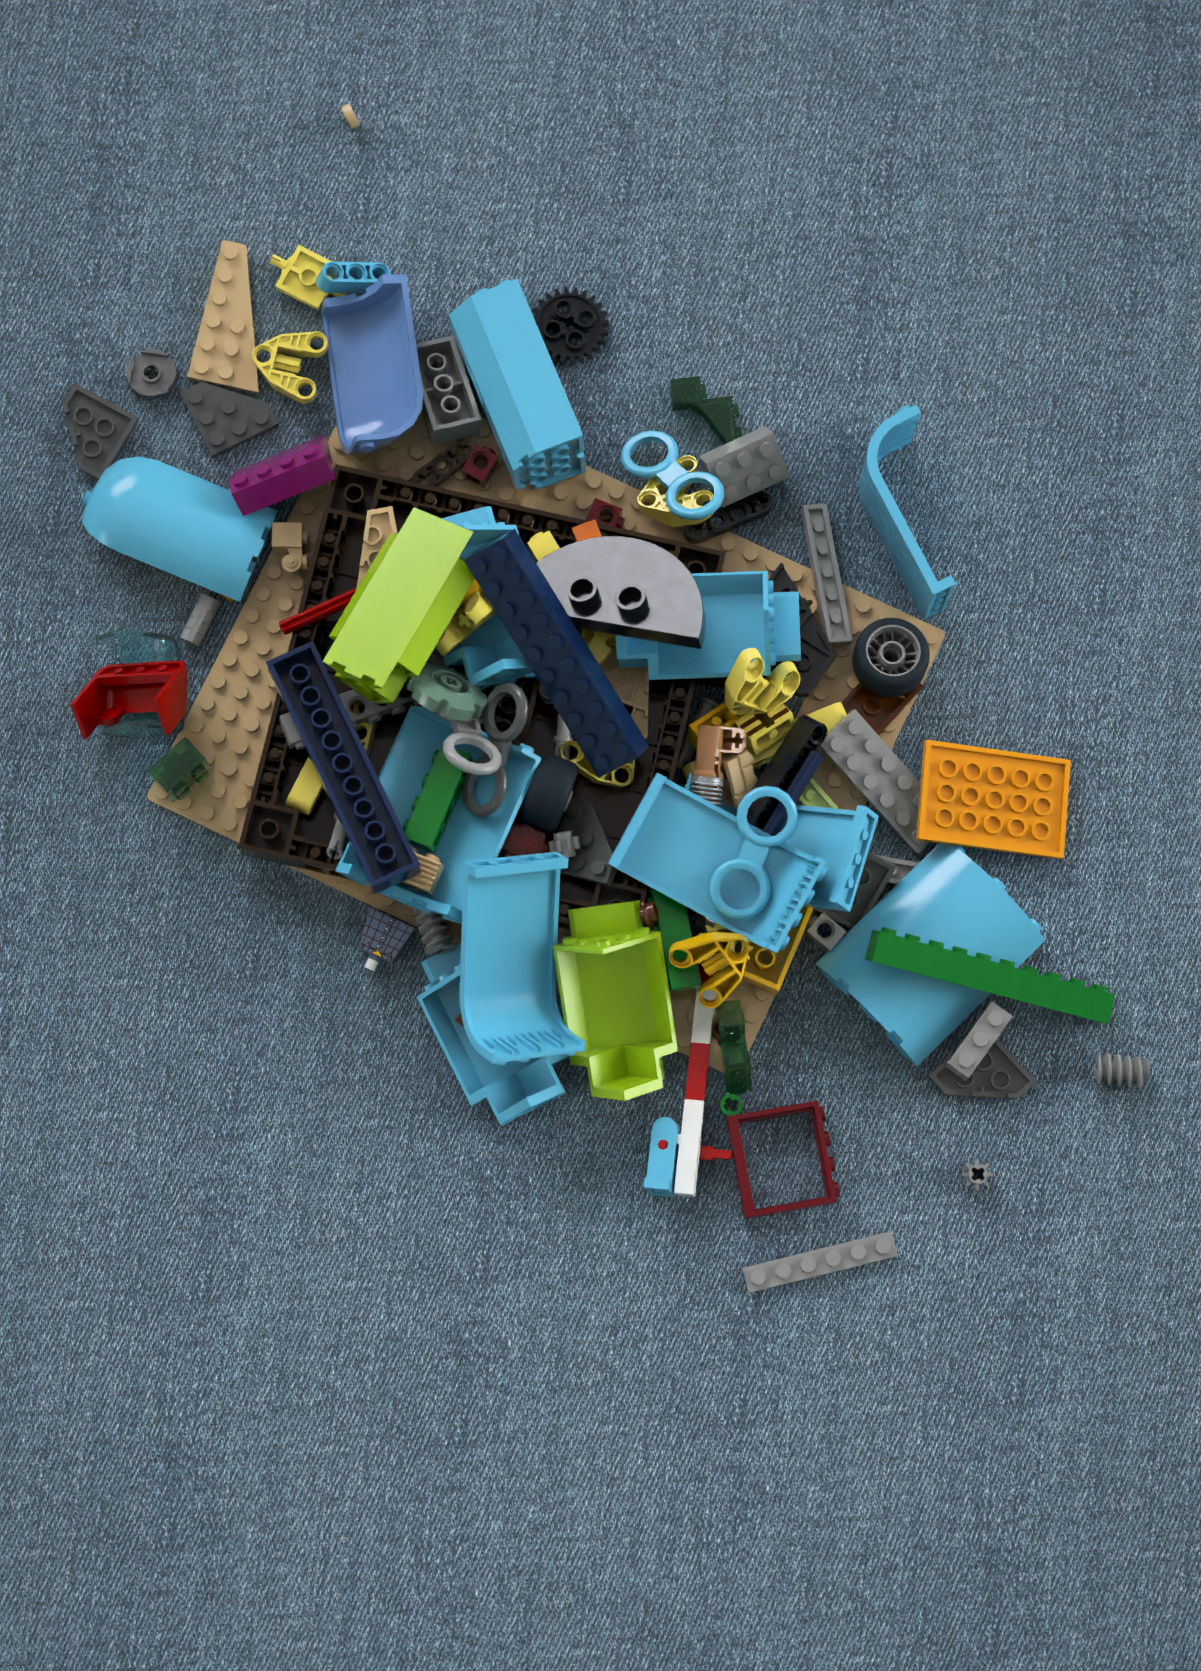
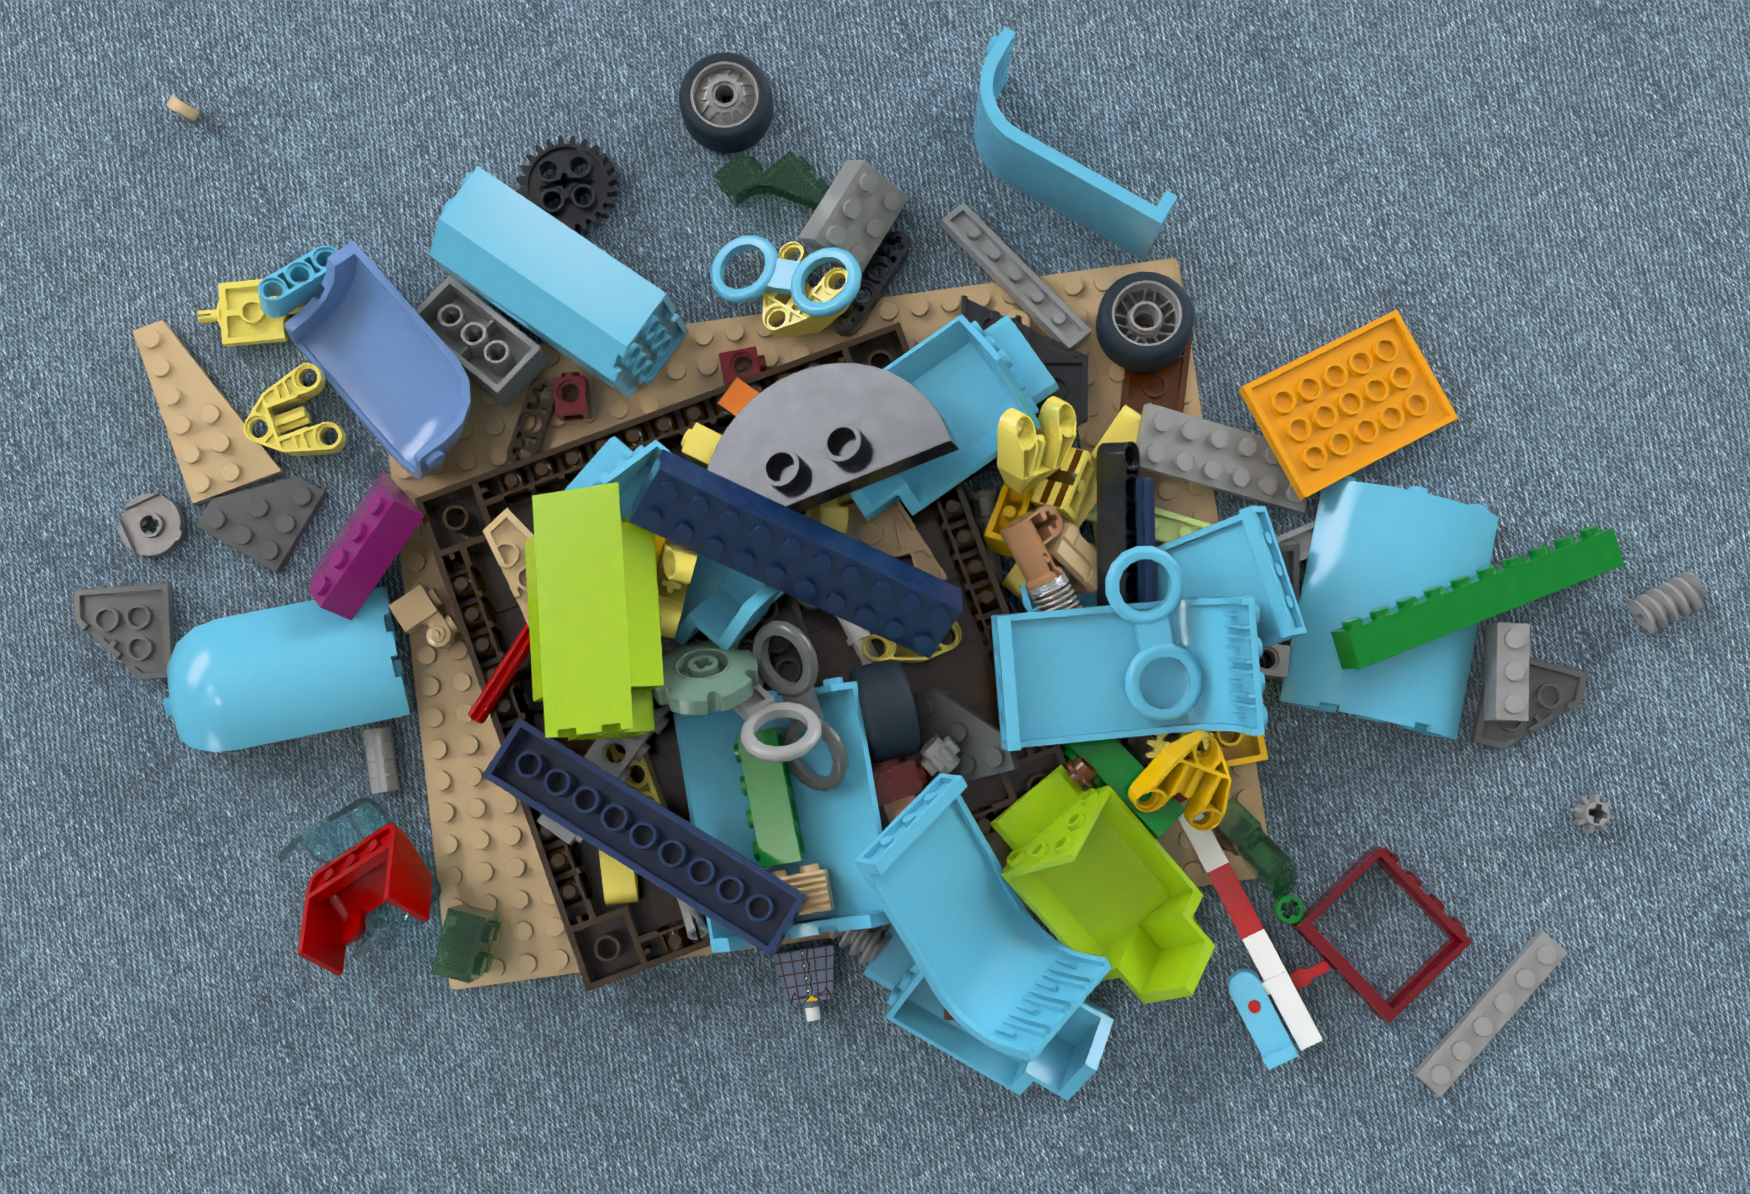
camera: 30 degrees left, 5 degrees up
(710, 356) = (728, 125): none -> wheel

